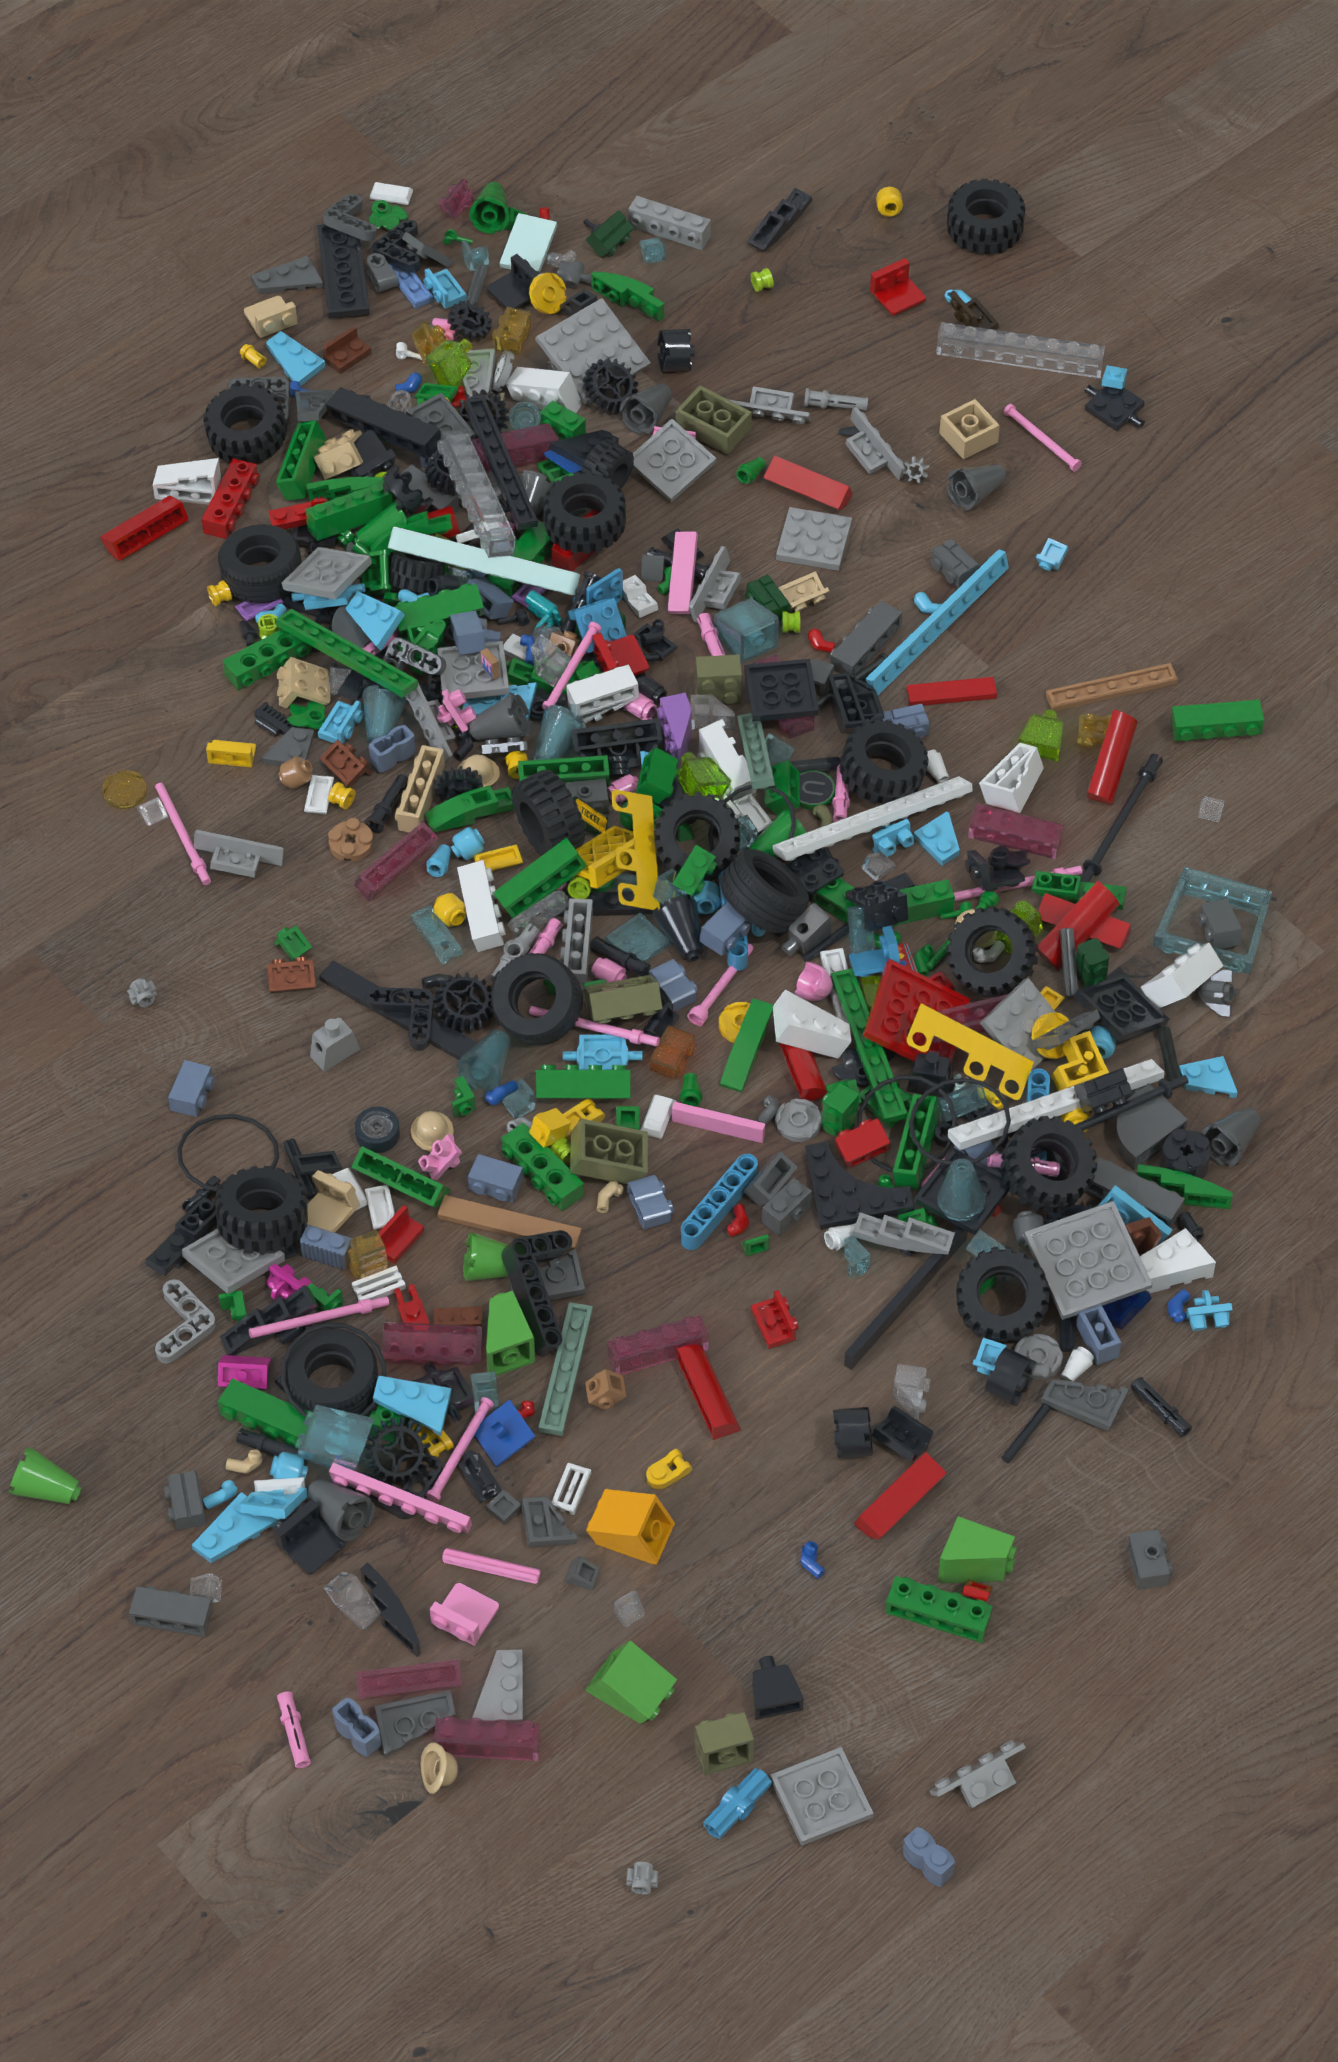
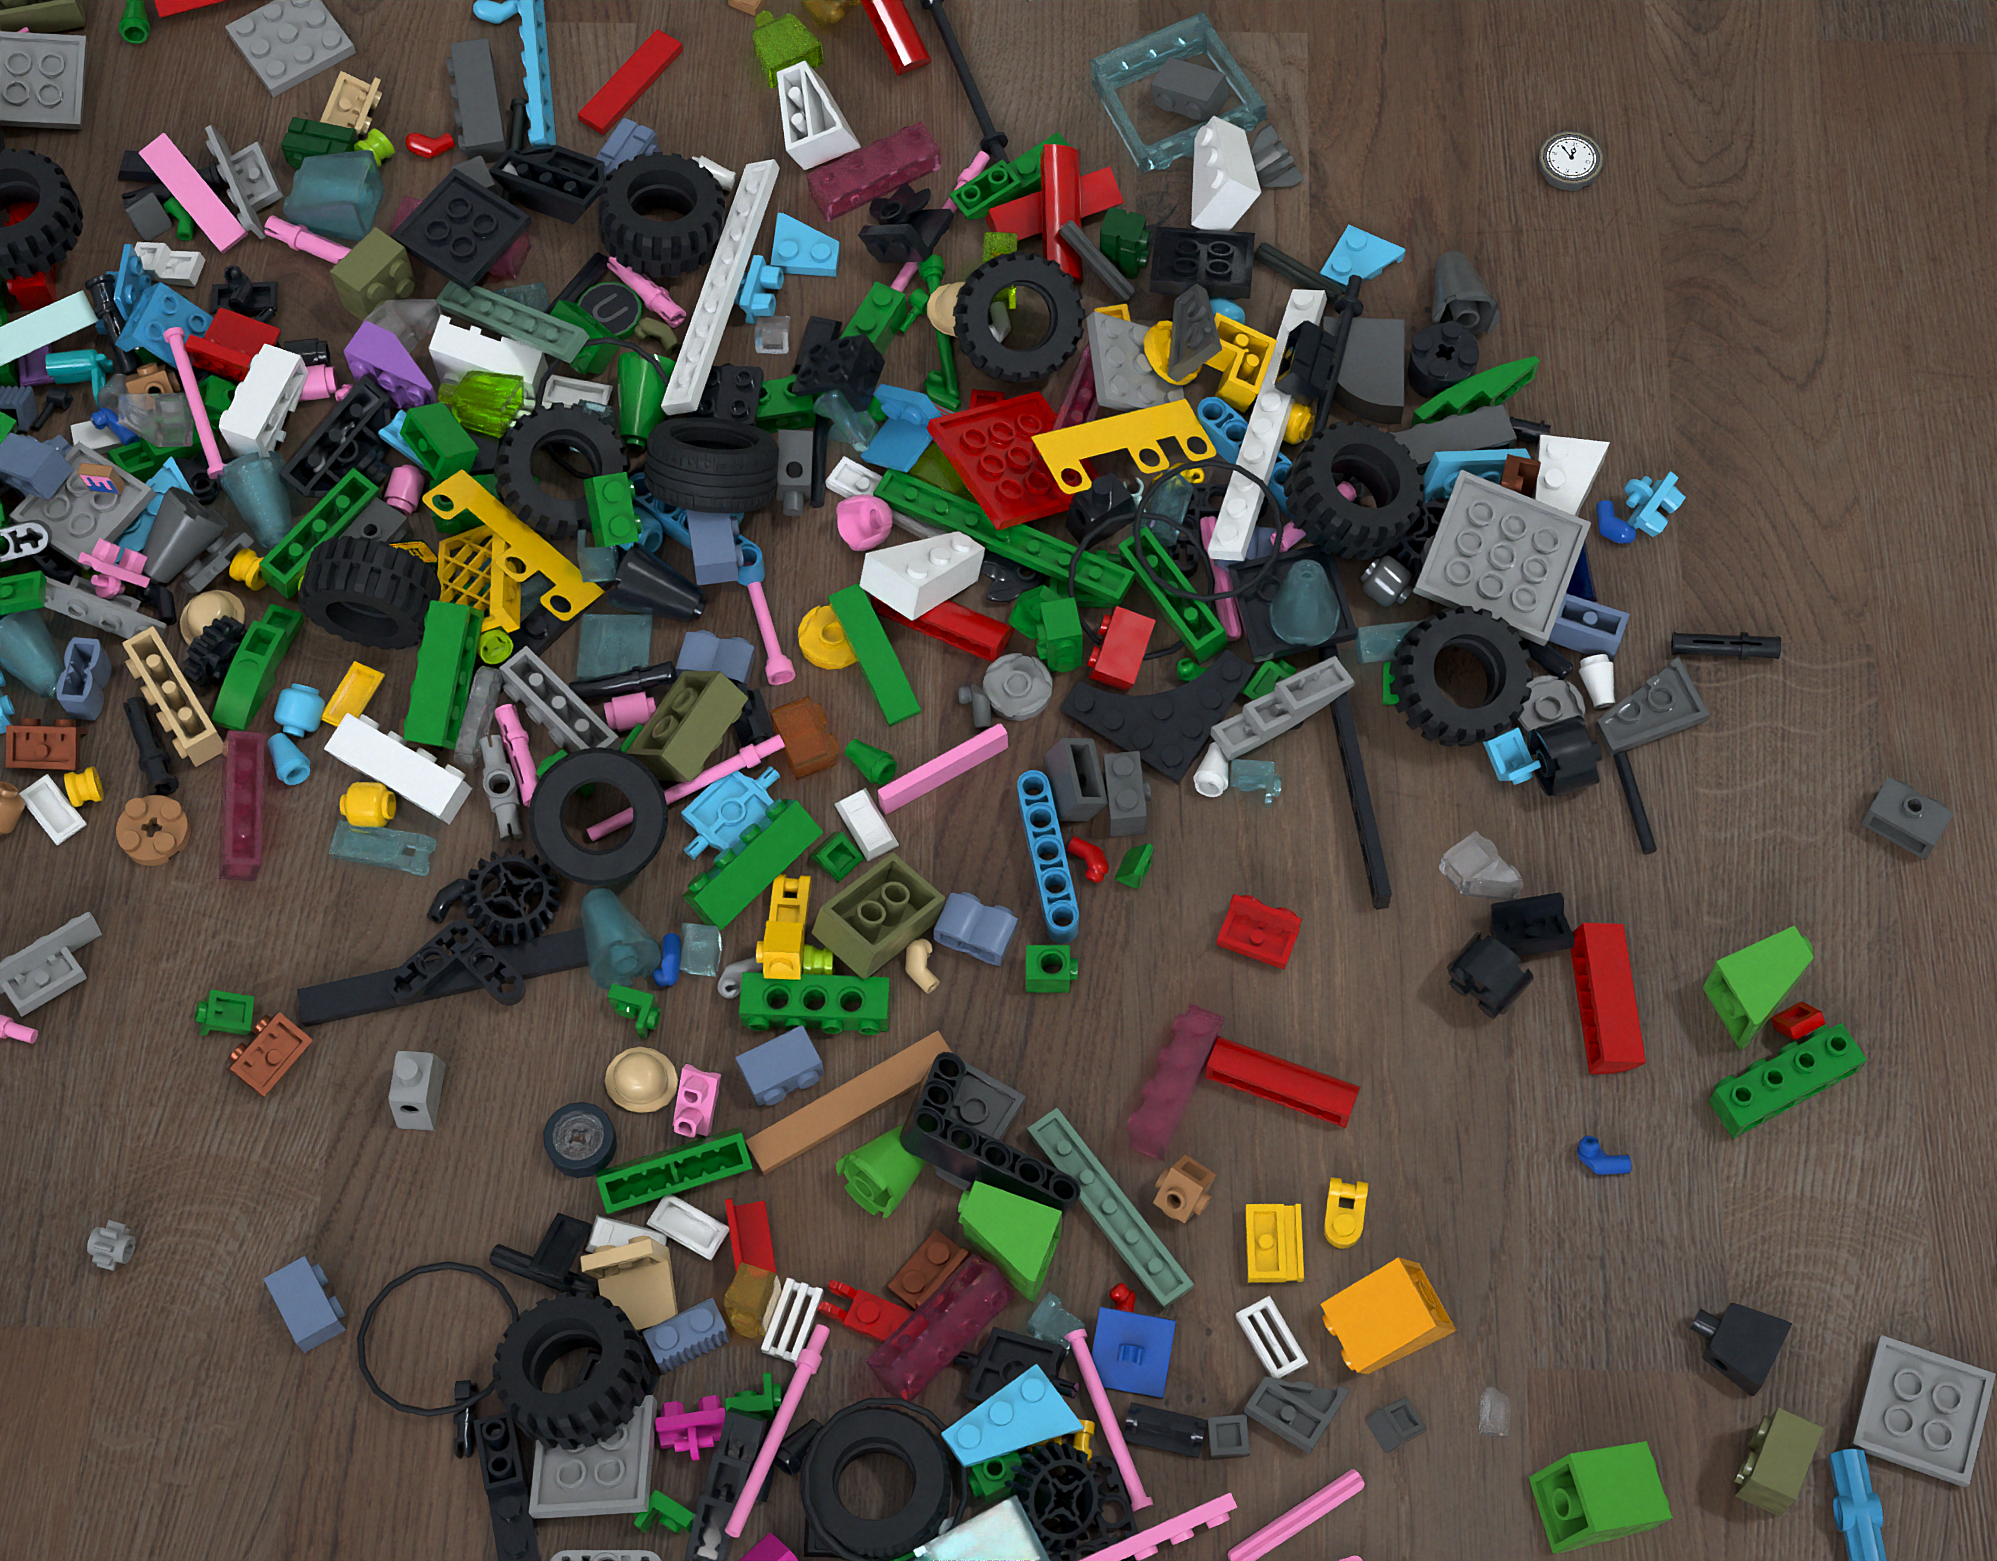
camera: 45 degrees left, 10 degrees up
(619, 1451) = (1274, 1243): none -> yellow plate
(660, 1239) = (1041, 955): none -> green brick

